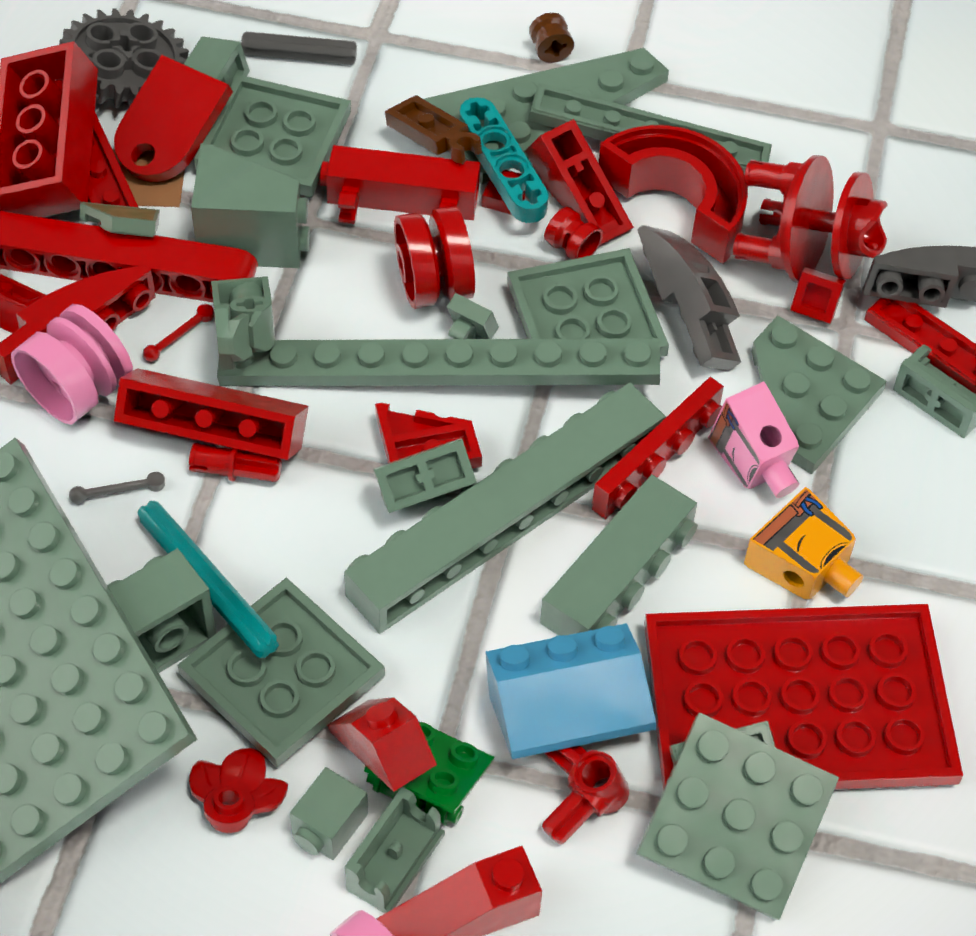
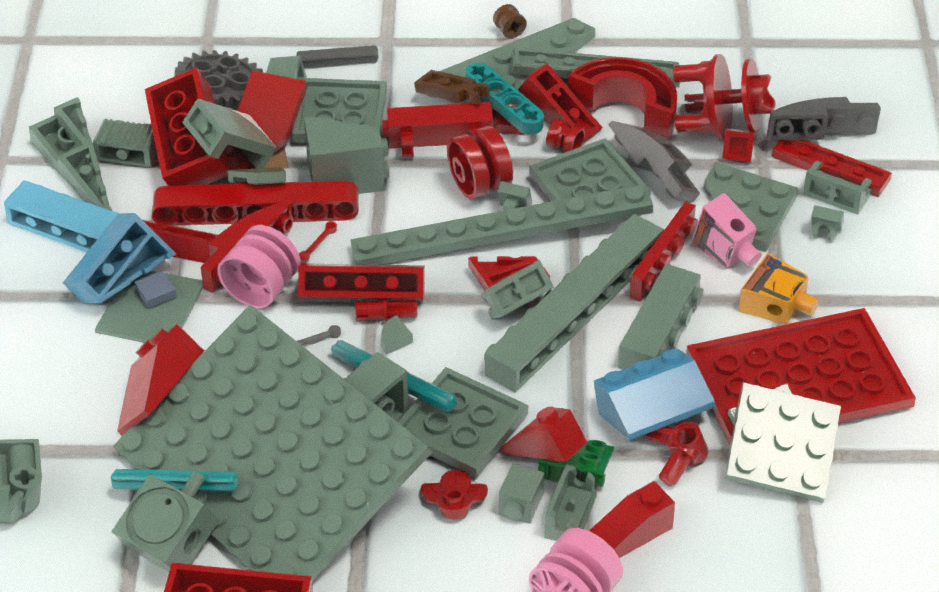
camera: 10 degrees left, 10 degrees down
(92, 142) = (220, 126): none -> sand green panel
(235, 506) = (395, 335): none -> sand green tile
(242, 318) = (362, 220): sand green piece -> none
(914, 443) = (826, 218): none -> sand green tile

